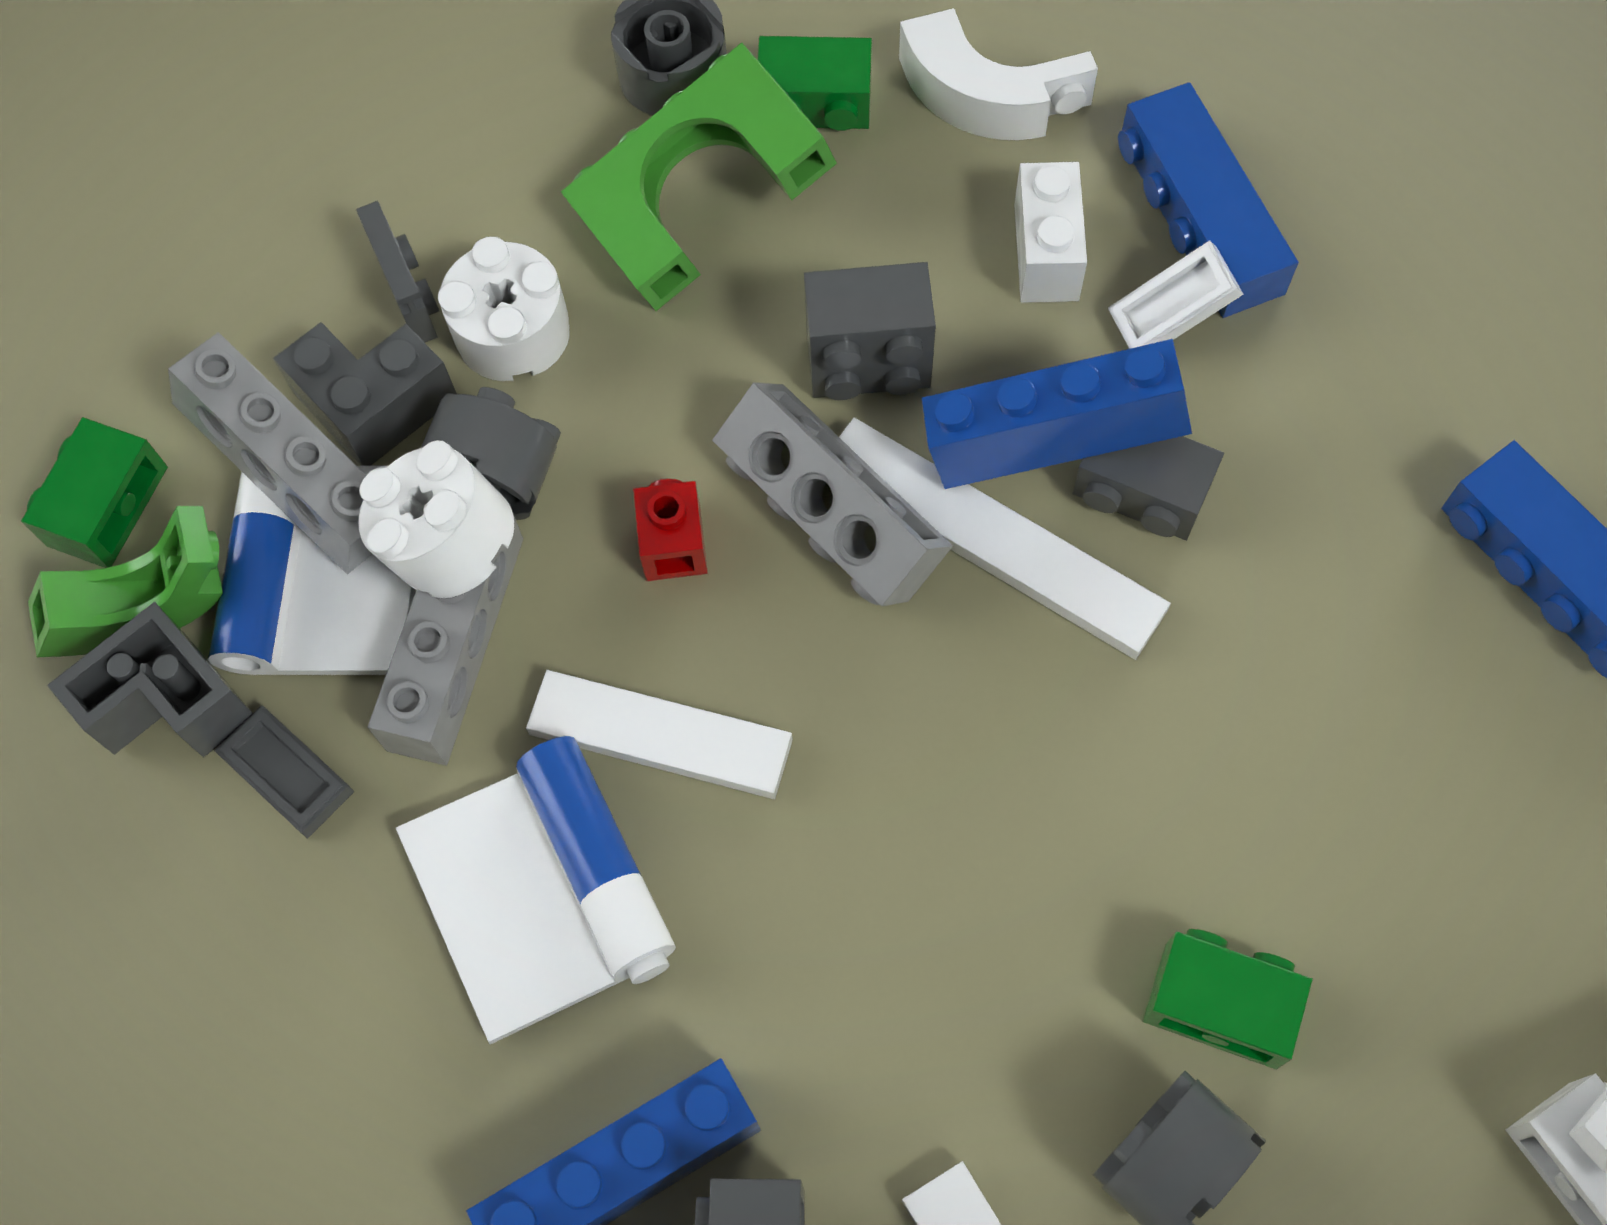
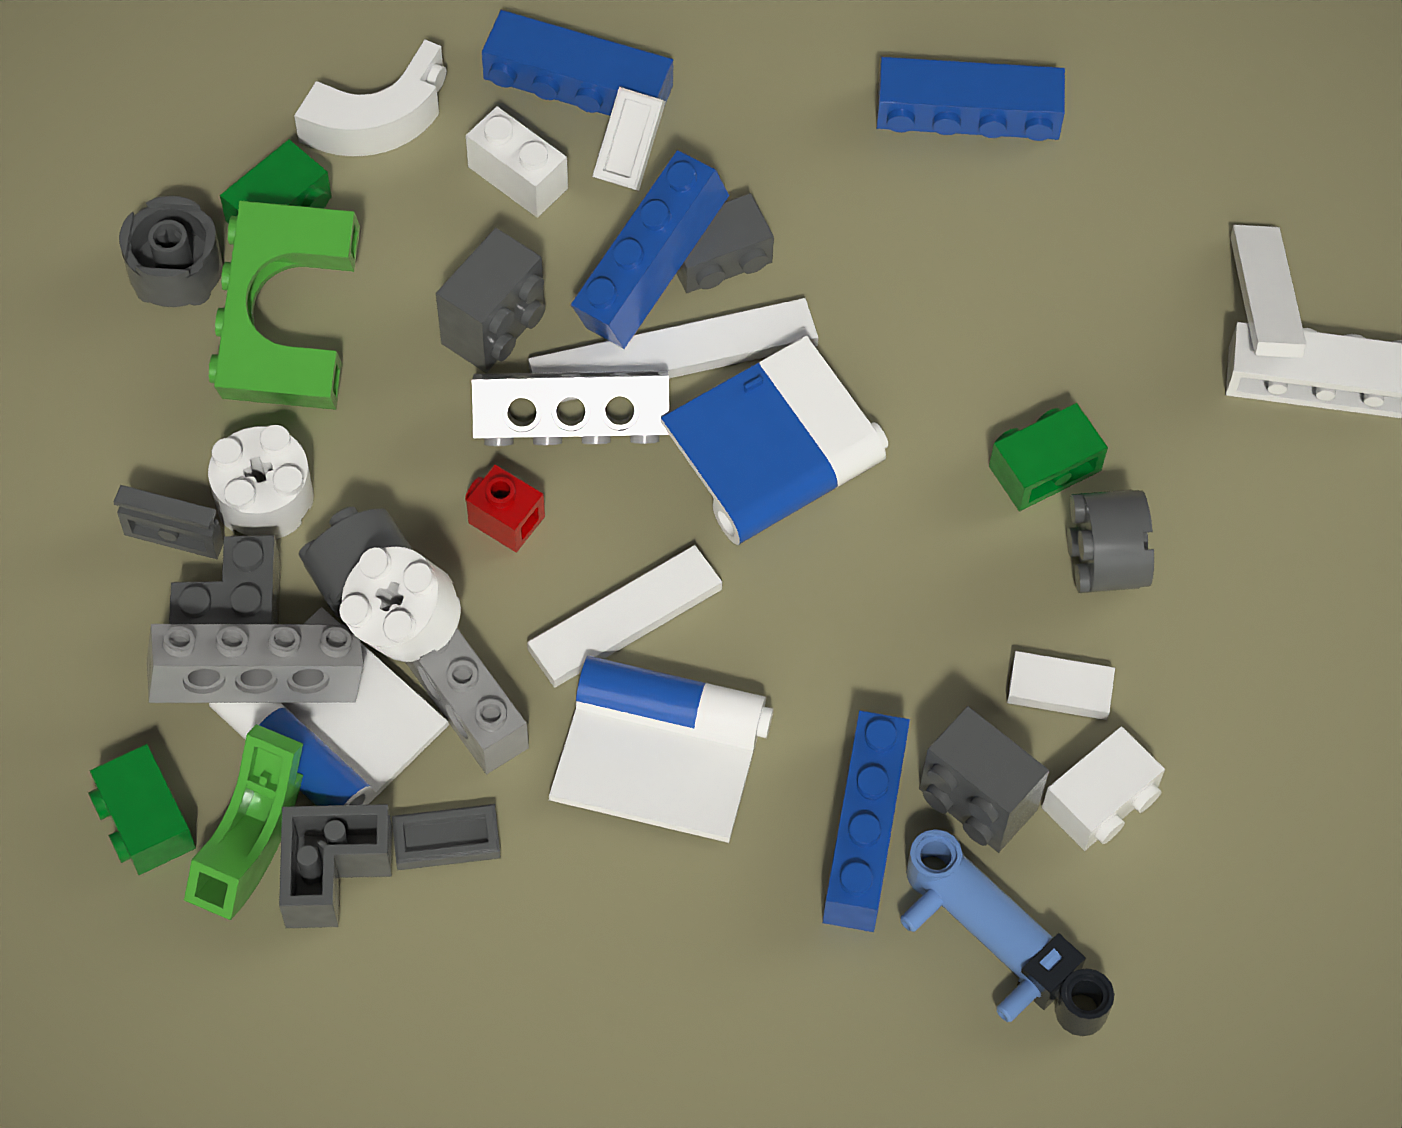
camera: 55 degrees left, 5 degrees down
(973, 708) = (774, 439): none -> blue door

